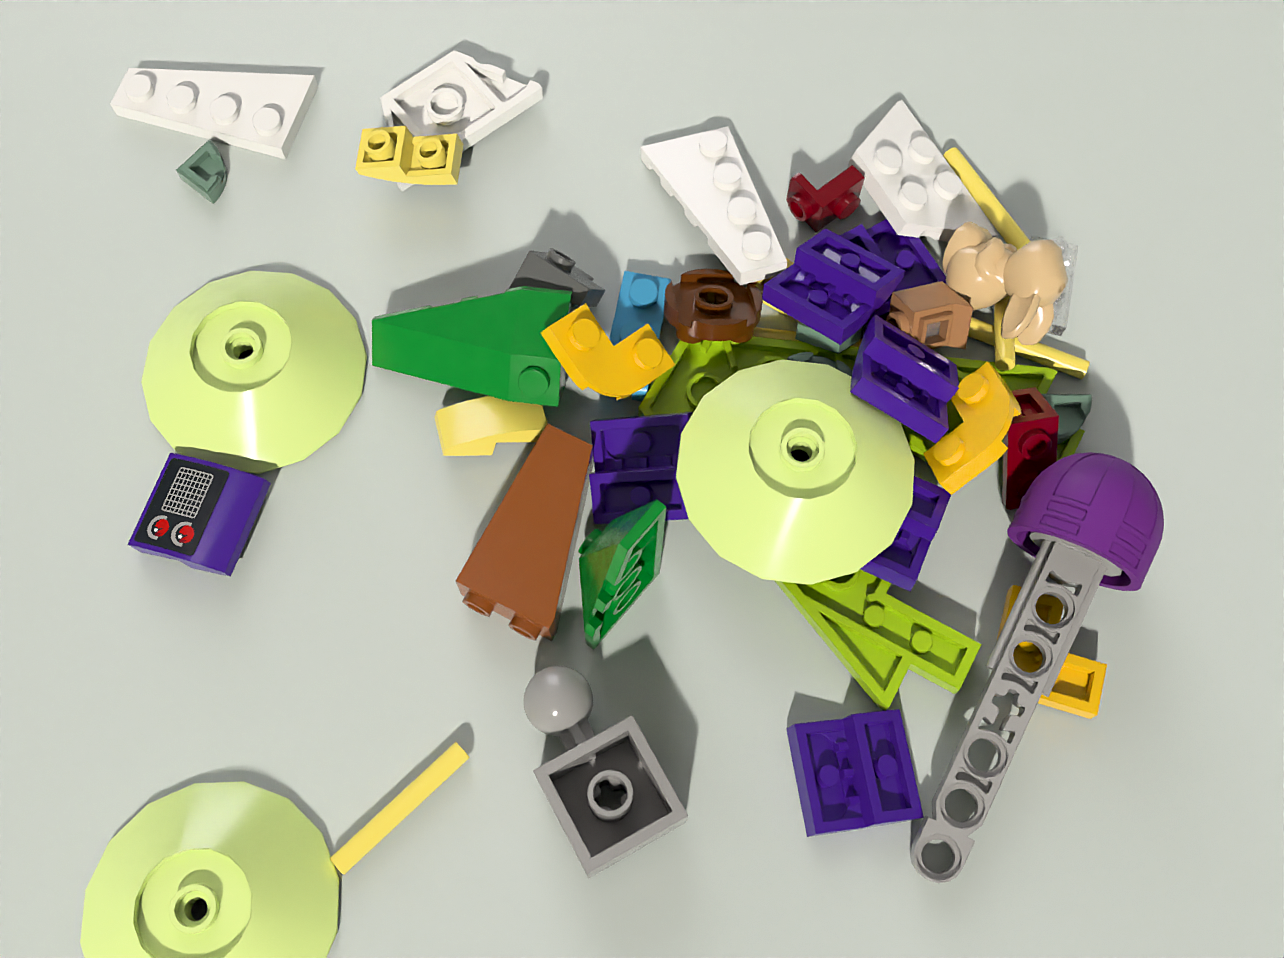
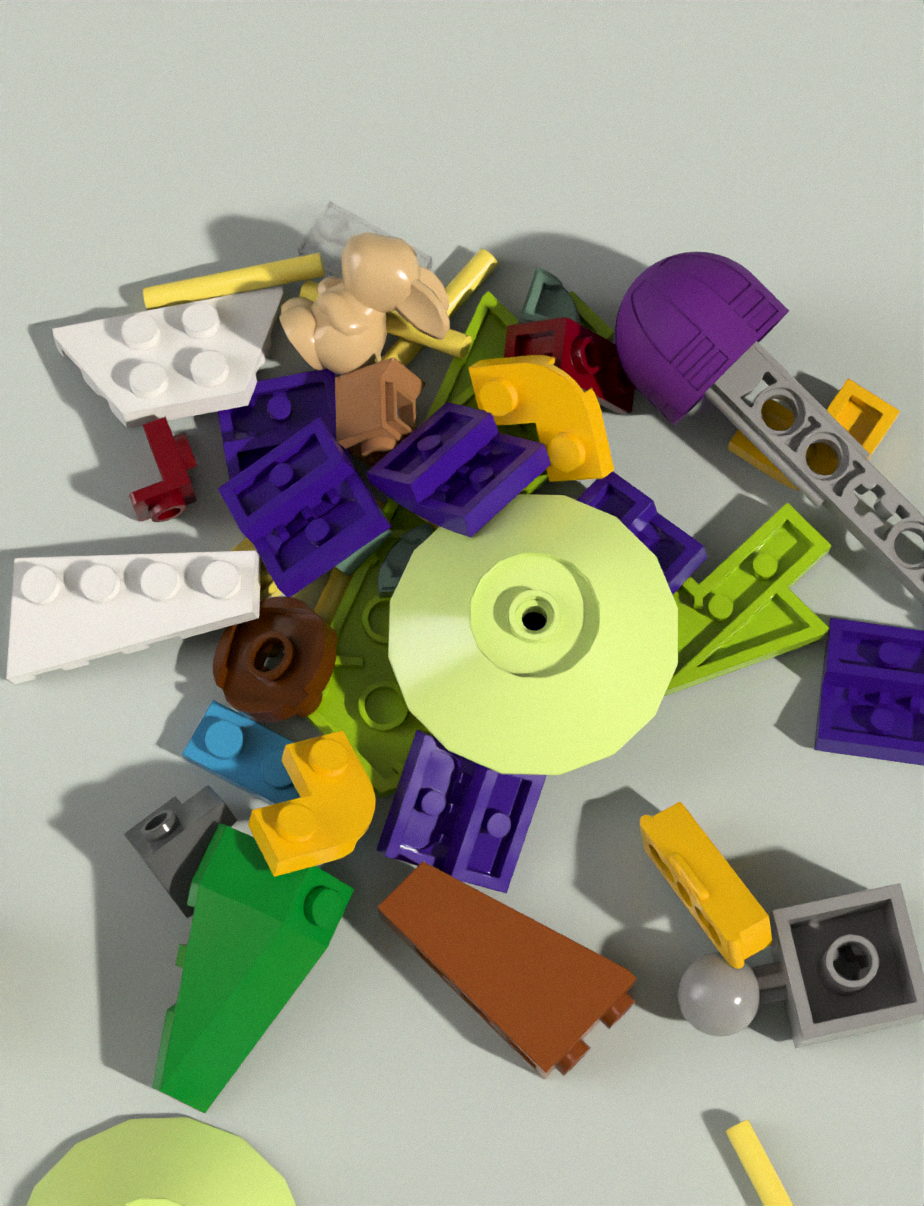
camera: 70 degrees left, 5 degrees up
(480, 423) = (342, 987): light yellow slope -> none
(619, 567) = (593, 876): green wedge -> none
(640, 662) = (706, 884): none -> yellow piece

